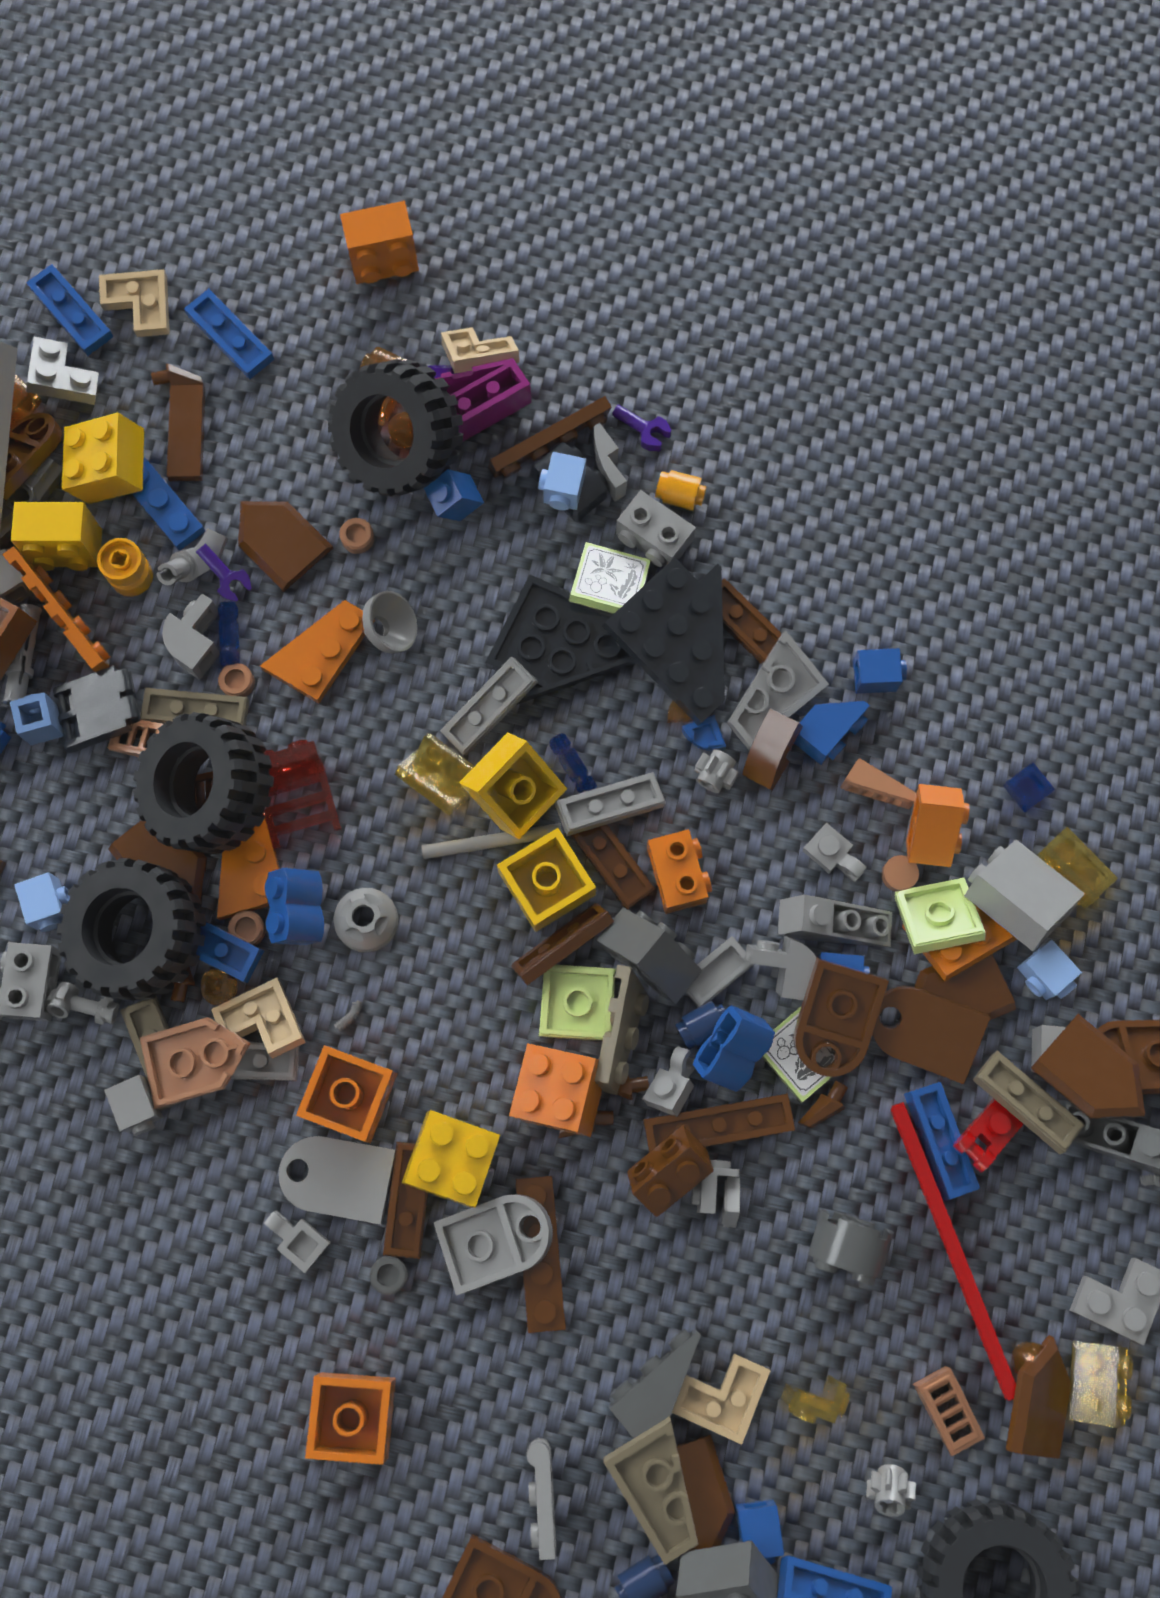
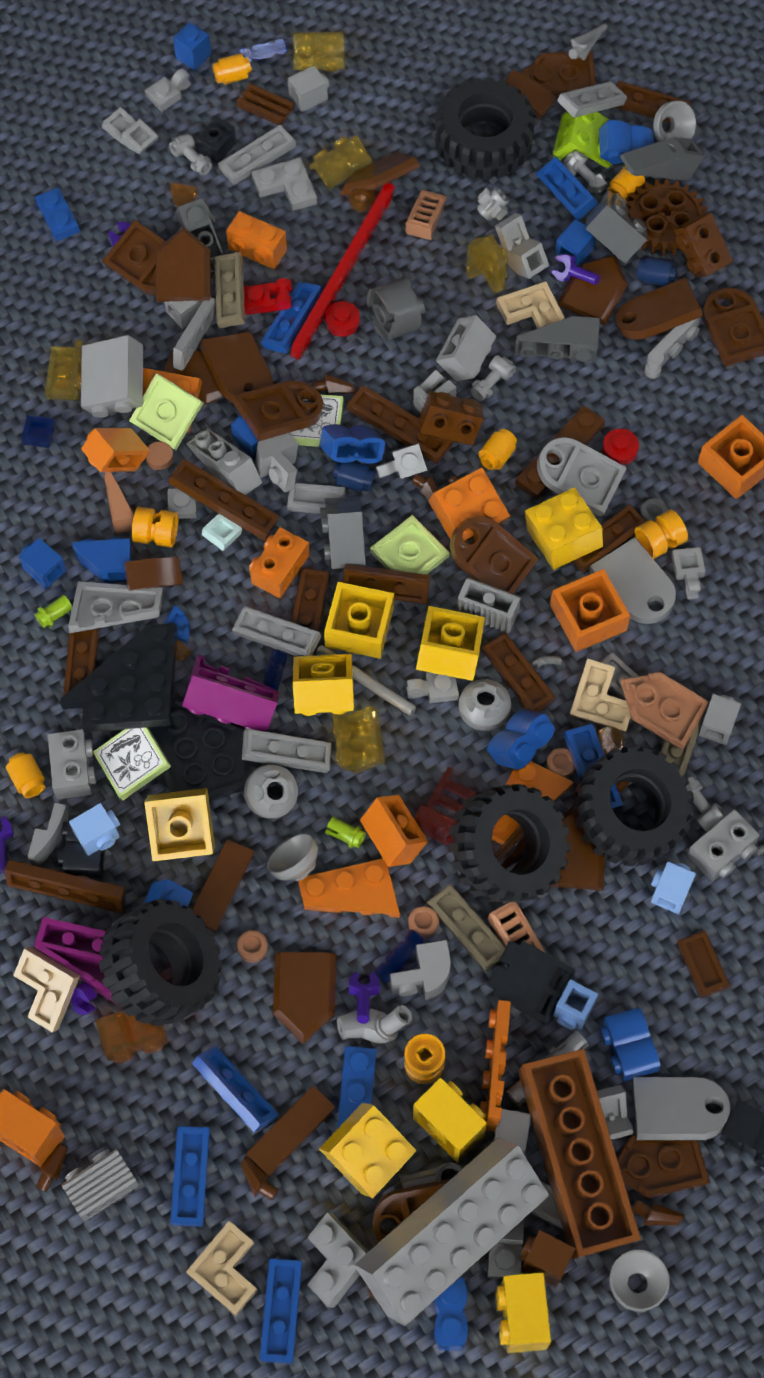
camera: 135 degrees left, 10 degrees down
(256, 418) = (235, 1089): none -> blue plate
(290, 267) = (99, 1184): none -> light grey brick
(325, 719) = (393, 830): none -> orange brick
(338, 250) = (52, 1167): none -> reddish brown bar
(354, 1249) = (663, 533): none -> light orange wheel
(363, 977) = (518, 673): none -> reddish brown tile
(371, 690) = (351, 835): none -> lime pin
(422, 895) = (436, 686): none -> light grey plate
(430, 557) = (222, 884): none -> reddish brown tile
(441, 934) = (450, 643): none -> yellow brick
(445, 1008) = (494, 604): none -> light grey brick
(476, 668) = (256, 791): none -> light grey piece
(484, 1058) = (492, 556): none -> reddish brown tile
(486, 1317) = (620, 446): none -> red wheel
(506, 556) = (179, 824): none -> yellow brick
(584, 700) = (229, 698): none -> magenta wedge
(587, 1530) = (658, 311): none -> reddish brown tile
(598, 1190) = (497, 449): none -> light orange brick
(624, 1018) = (402, 504): dark tan wing -> none
(655, 1489) = (610, 295): dark tan wing -> none
(685, 1291) = (499, 368): none -> light grey bar
(716, 771) = (197, 593): light grey gear -> none
(731, 1488) = (573, 270): none -> dark purple bar
(737, 1273) = (466, 348): none -> light grey brick
(761, 852) = (221, 532): none -> light aqua plate
(789, 878) = (223, 499): none -> reddish brown plate
(805, 1459) = (524, 254): none -> light grey brick
(819, 645) = (53, 611): none -> lime pin
(831, 789) = (155, 527): none -> light orange wheel
(895, 1190) = (342, 319): none -> red wheel
(1006, 1019) = (194, 334): none -> light grey tile
(1049, 972) = (147, 333): light blue brick -> none
(1070, 1192) = (256, 240): none -> orange brick

